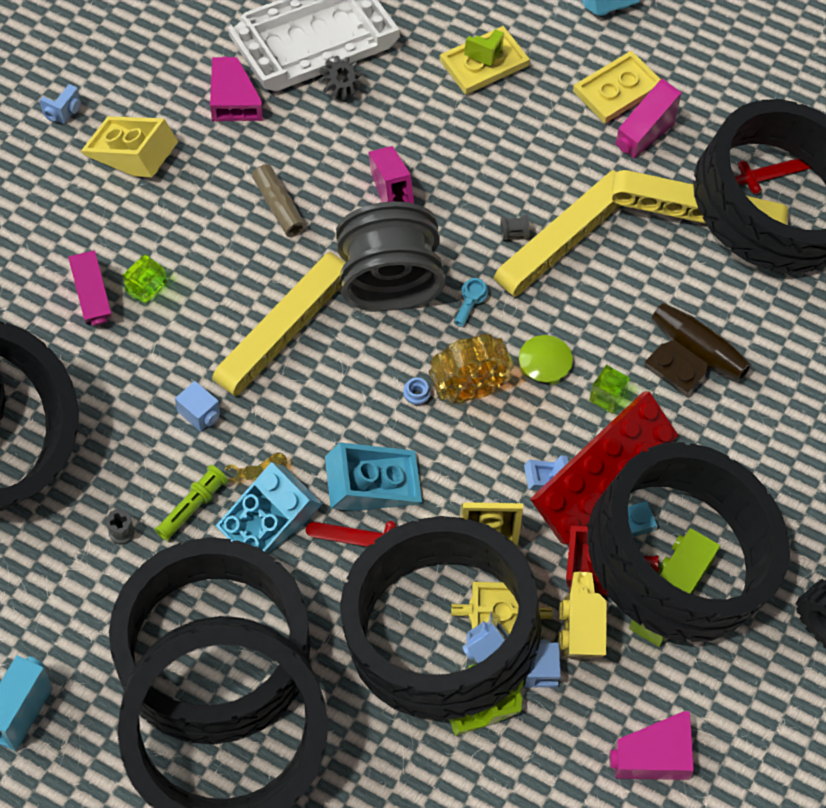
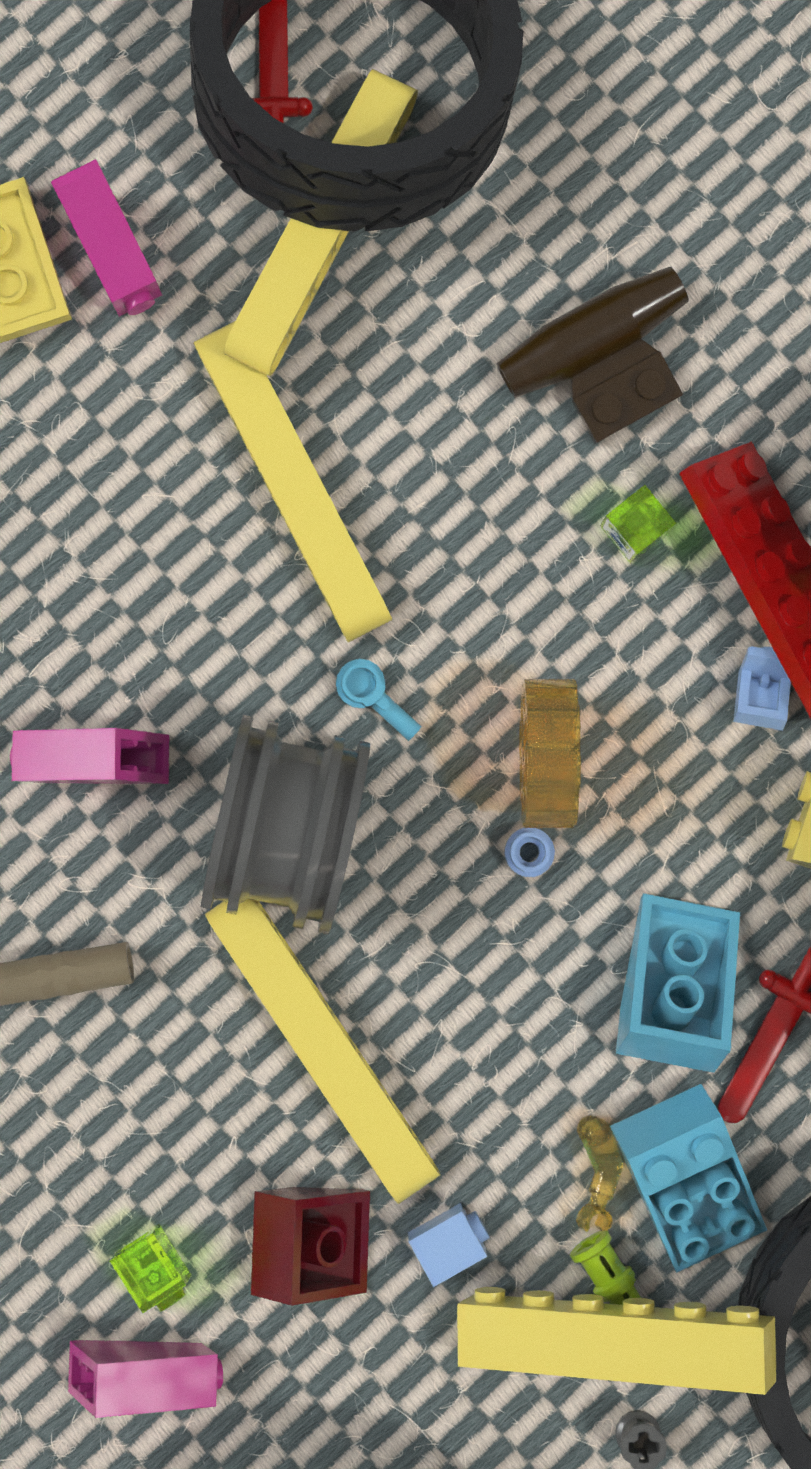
camera: 70 degrees left, 25 degrees up
(174, 482) = (618, 1341): none -> light yellow brick
(179, 345) = (310, 1244): none -> dark red slope
(514, 227) = (252, 566): dark grey bush -> none
(545, 359) = (534, 609): lime dish -> none

